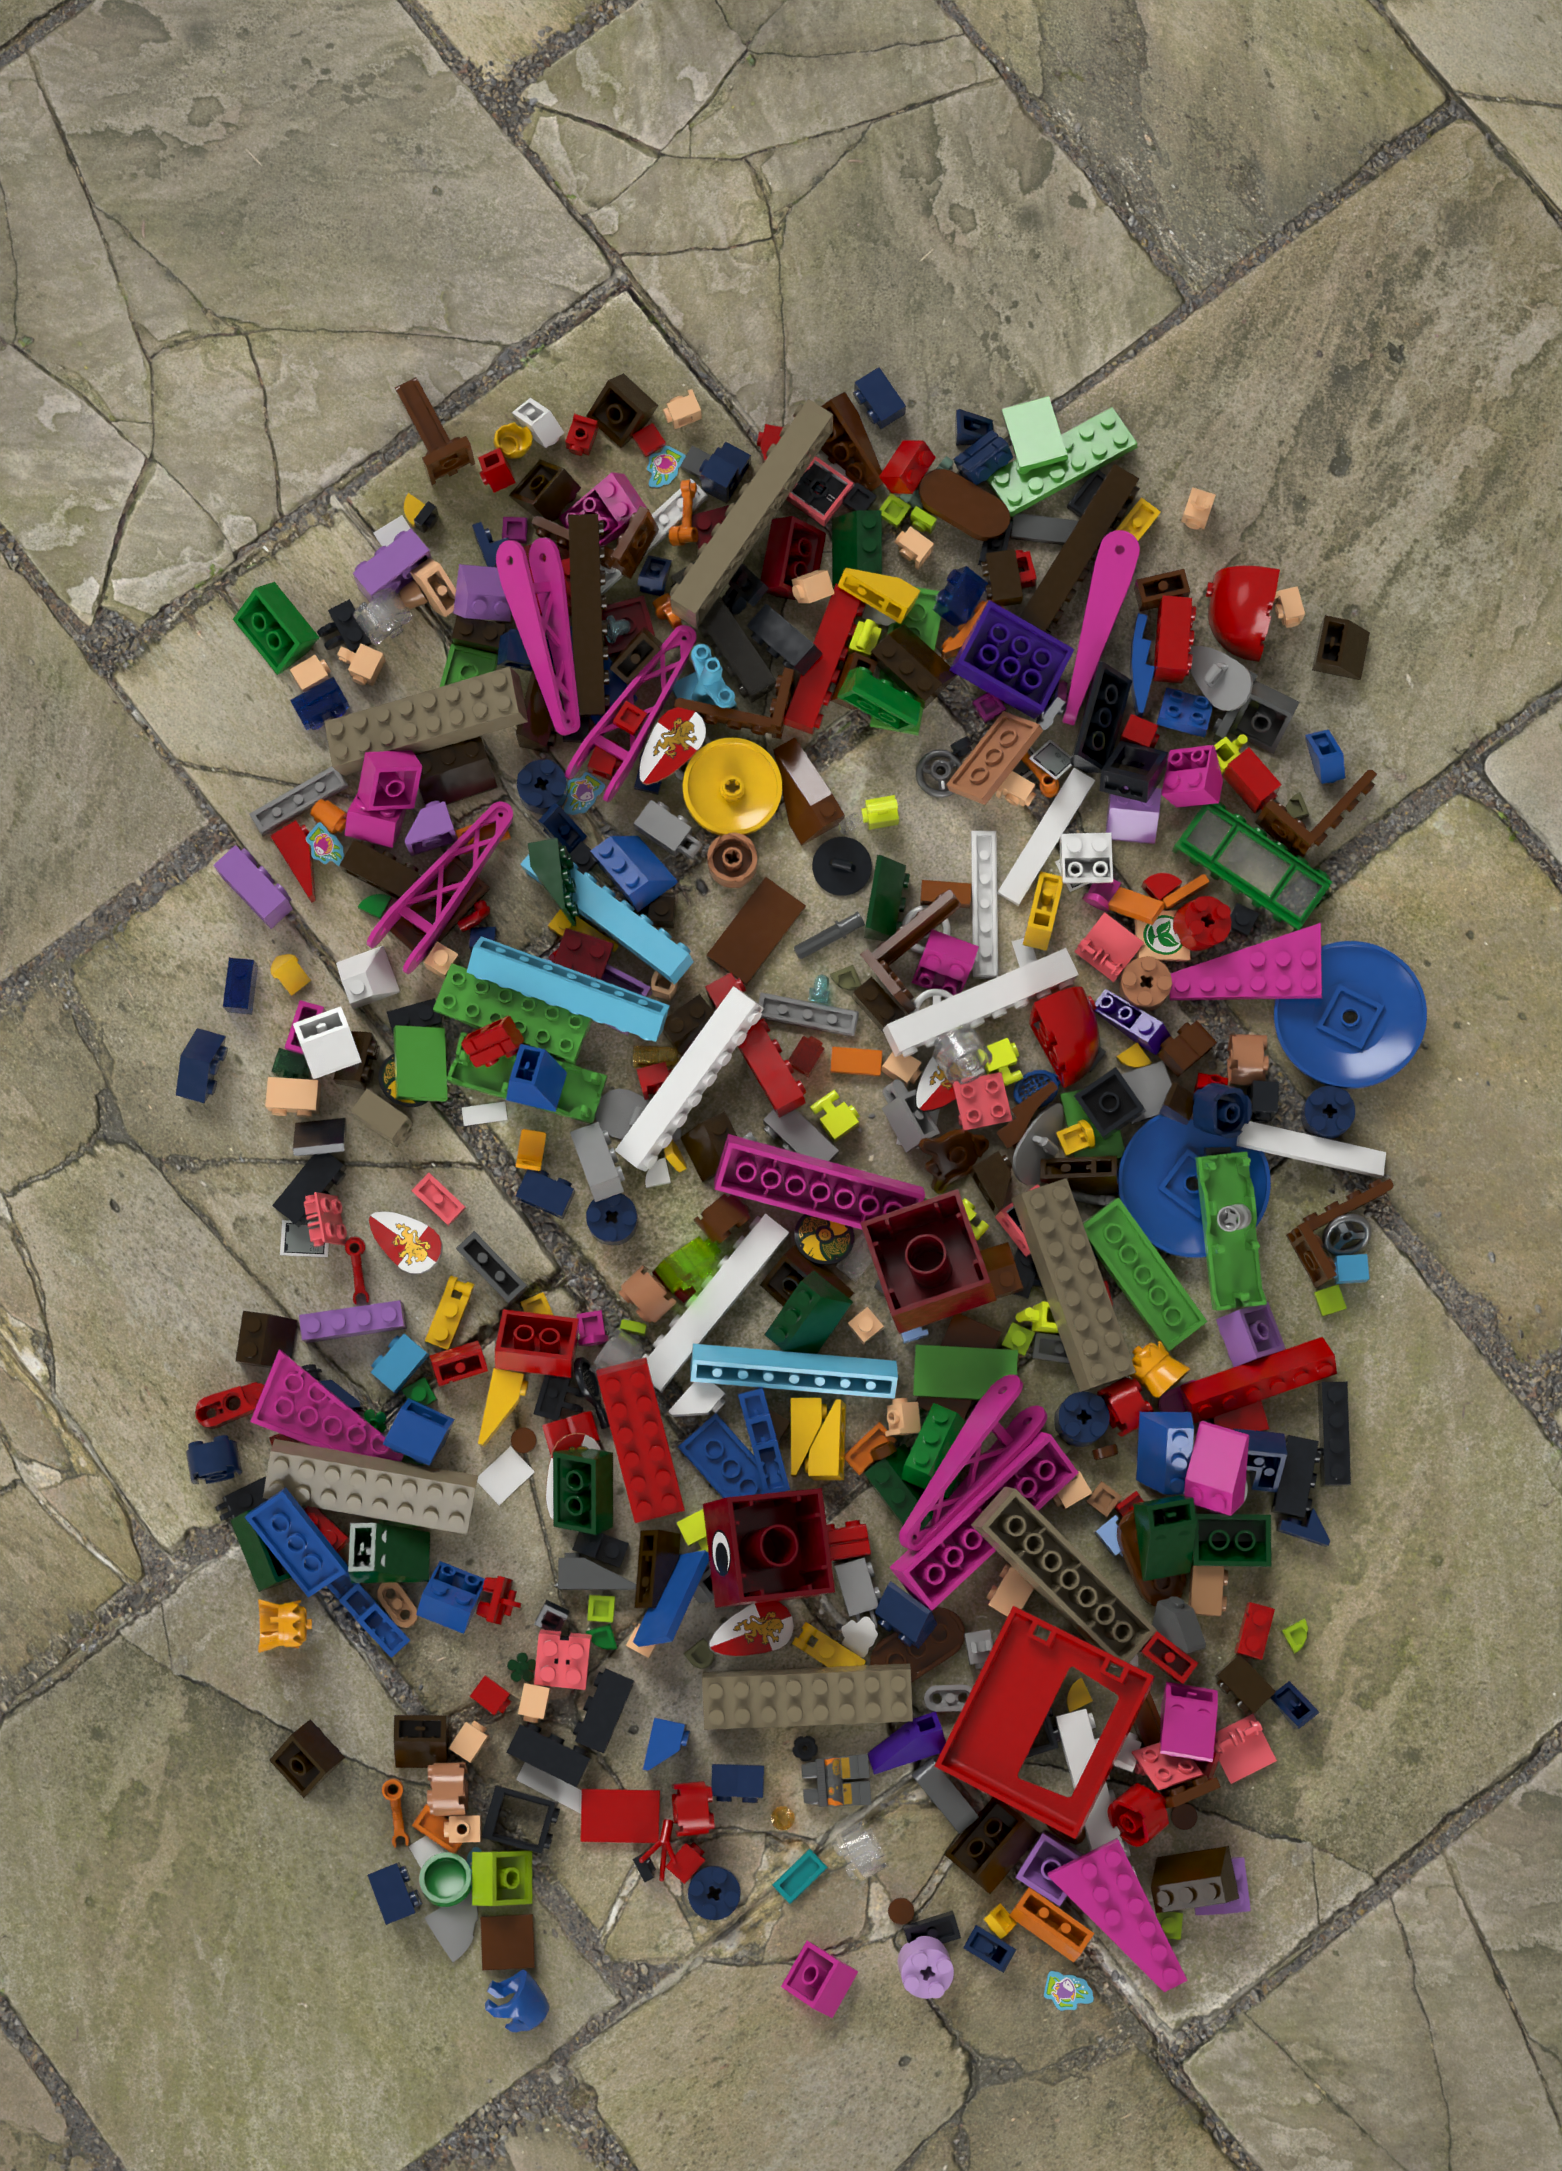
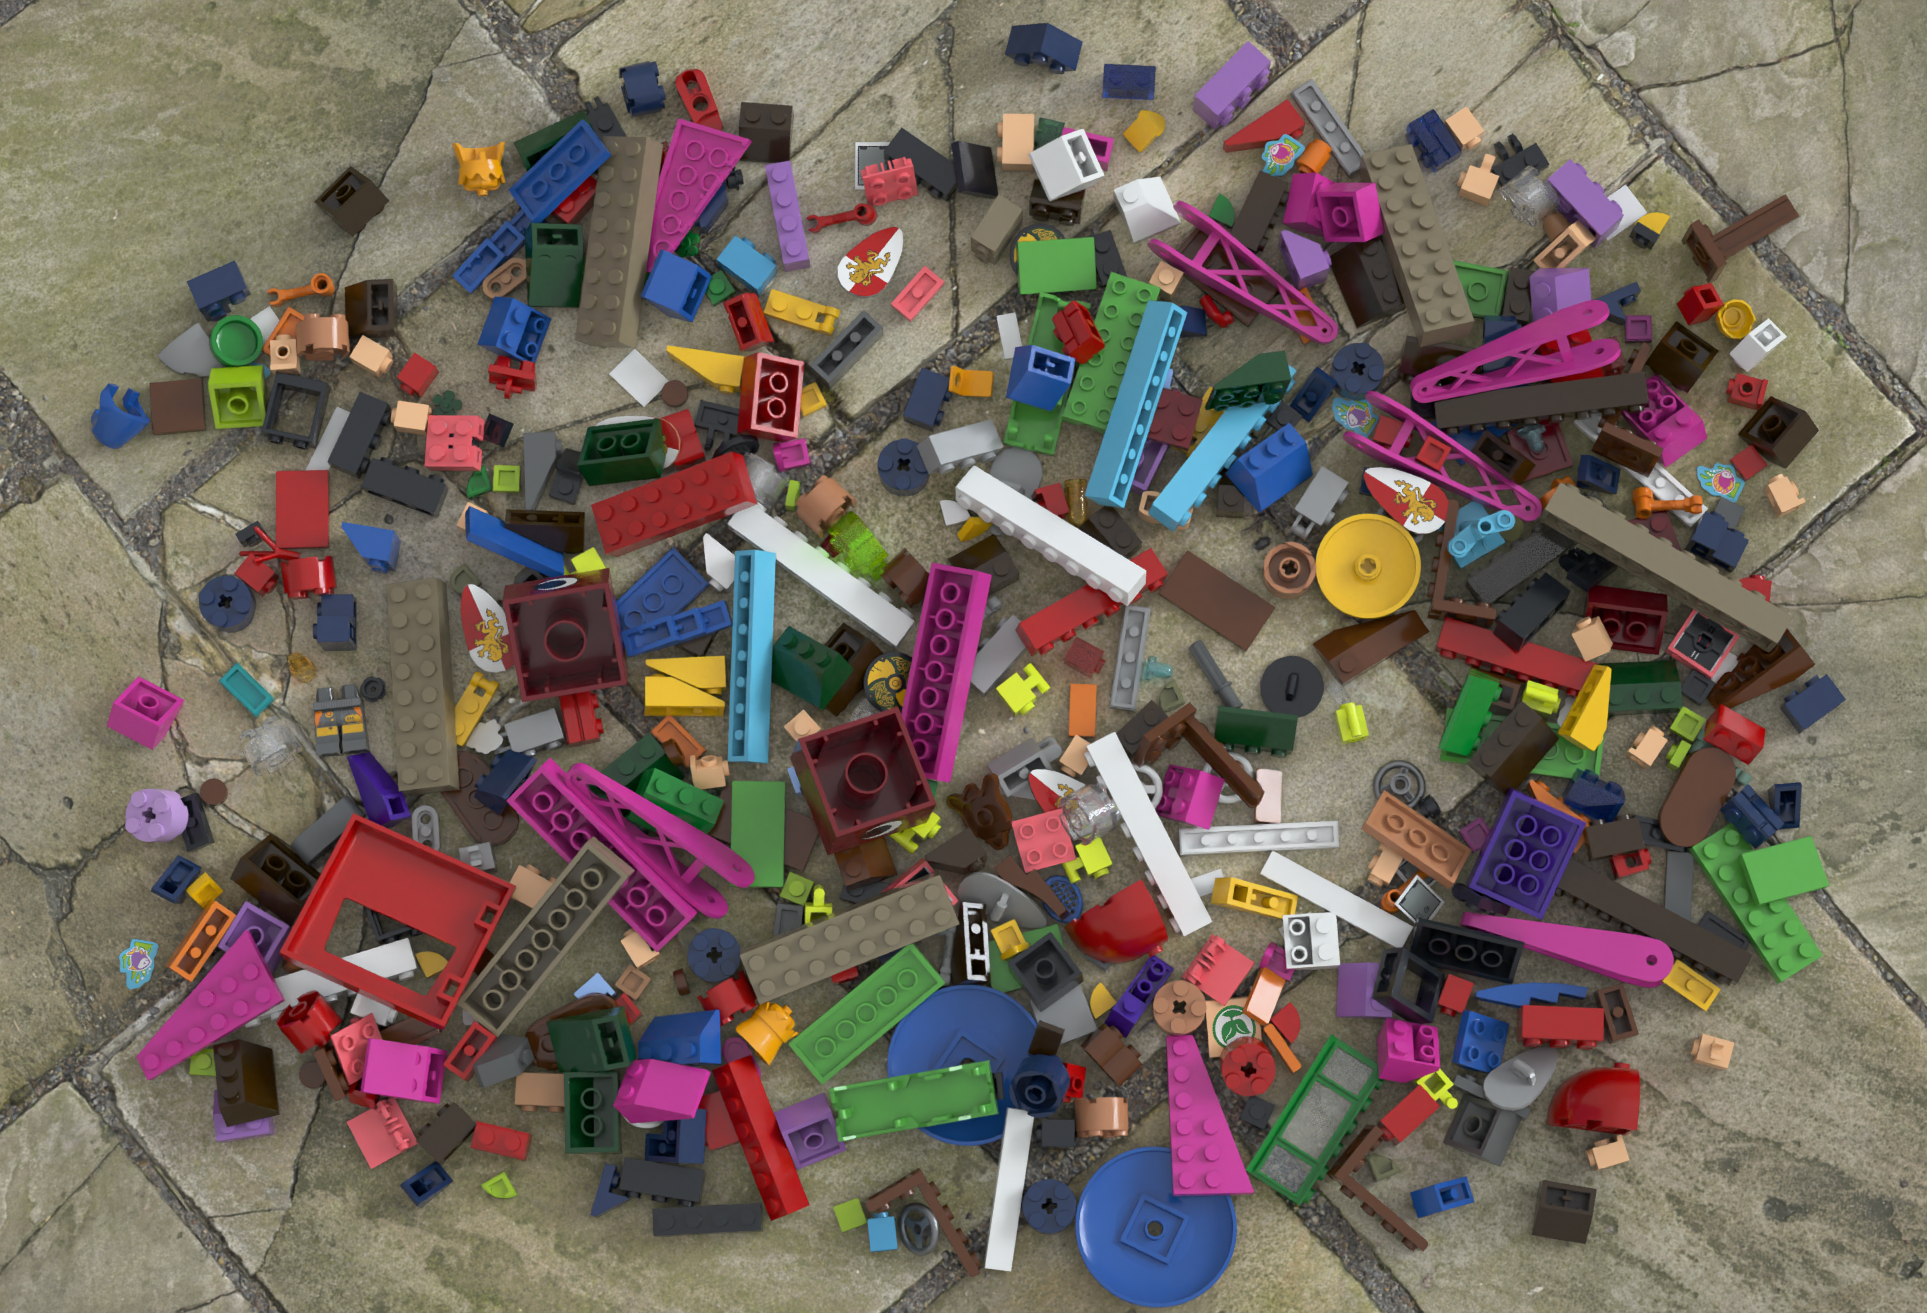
camera: 90 degrees right, 0 degrees up
(275, 627) = (1513, 91): green slope -> none
(1228, 1217) = (922, 1098): light grey wheel -> none

